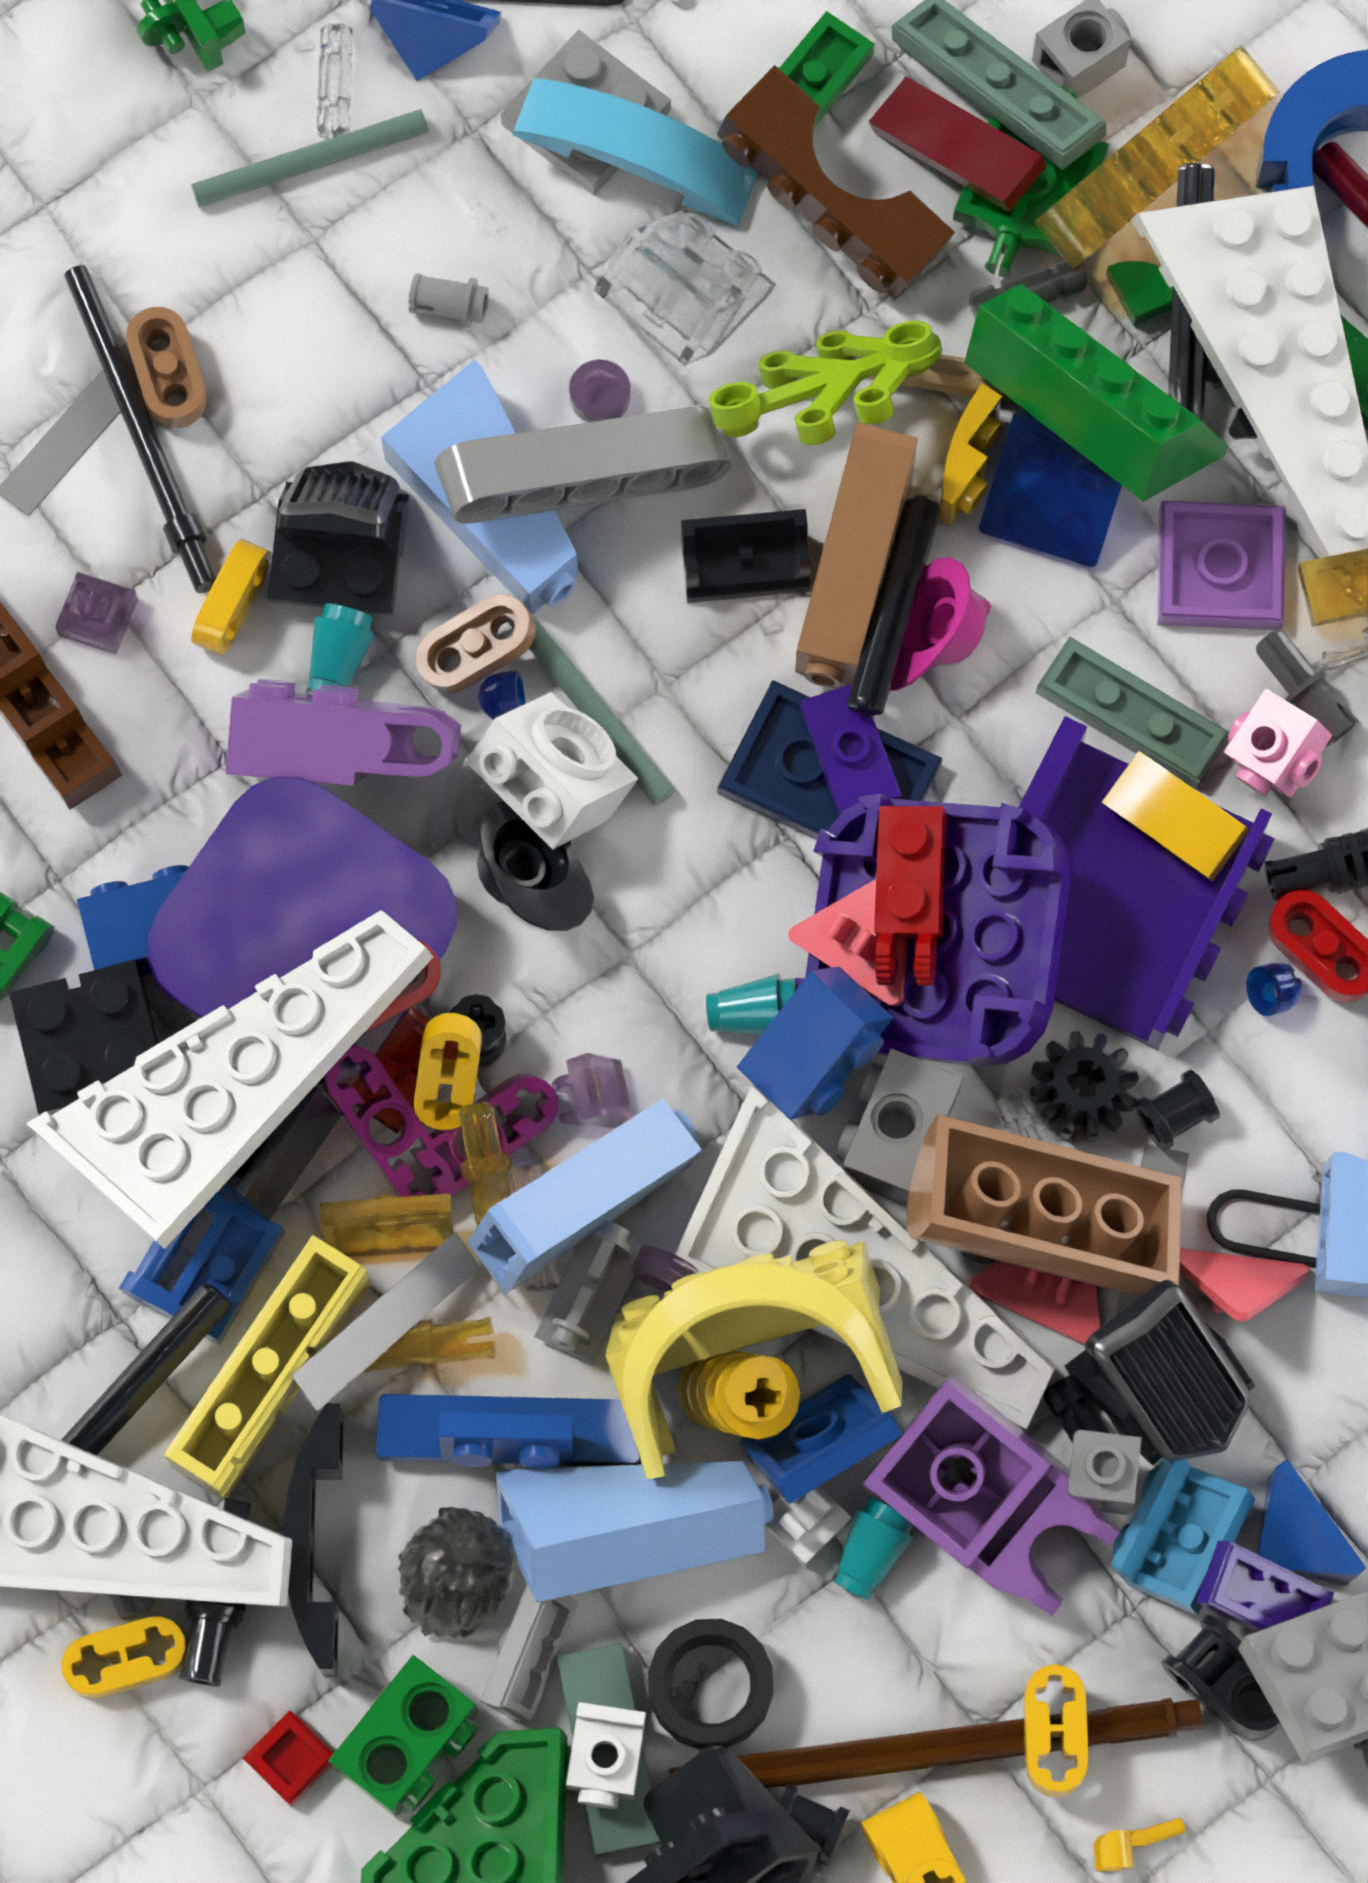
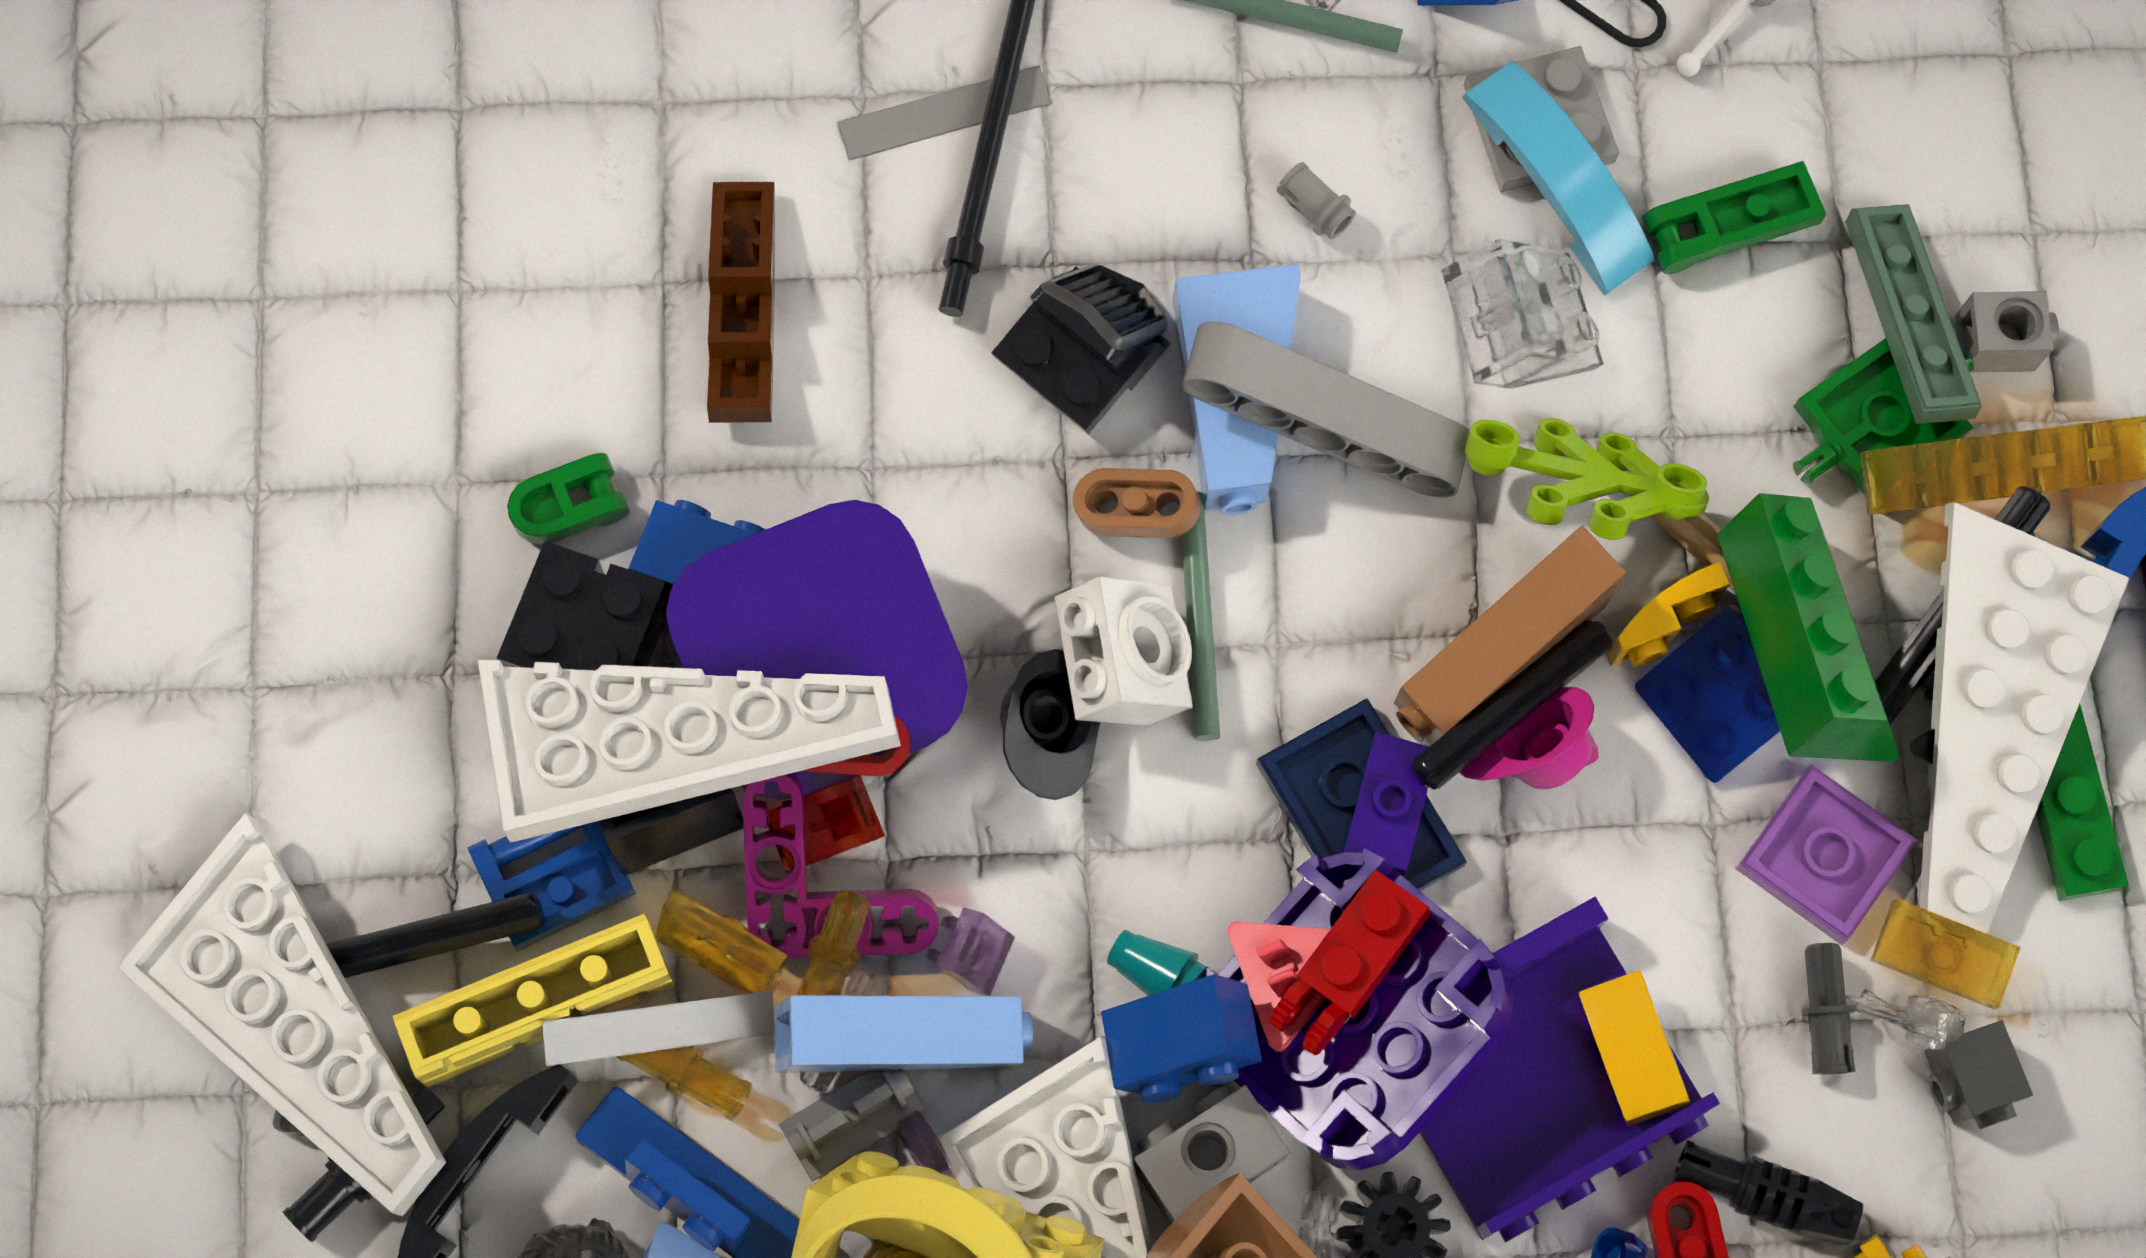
camera: 30 degrees right, 0 degrees up
(96, 613) = (846, 274): clear purple tile -> none
(121, 1641) = (259, 1148): yellow beam -> none
(167, 370) = (1042, 112): medium nougat plate -> none
(231, 597) = (962, 332): yellow beam -> none
(331, 735) = (958, 501): medium lavender brick -> none
(338, 645) = (1020, 433): teal cone -> none
(436, 1070) = (843, 843): yellow beam -> none
(494, 1023) = (905, 812): black bush -> none
(502, 693) = (1131, 560): clear blue hinge -> none
(599, 391) = (1390, 359): clear purple tile -> none
(746, 555) = (1416, 577): black hinge -> none
(885, 237) = (1722, 385): reddish brown arch -> none
(957, 144) = (1840, 344): dark red tile -> none
(1041, 281) = (1831, 508): dark grey axle -> none
(1132, 712) = (1660, 931): sand green tile -> none
(1140, 289) = (1916, 569): green tile -> none
(1276, 746) = (1765, 1046): bright pink brick -> none

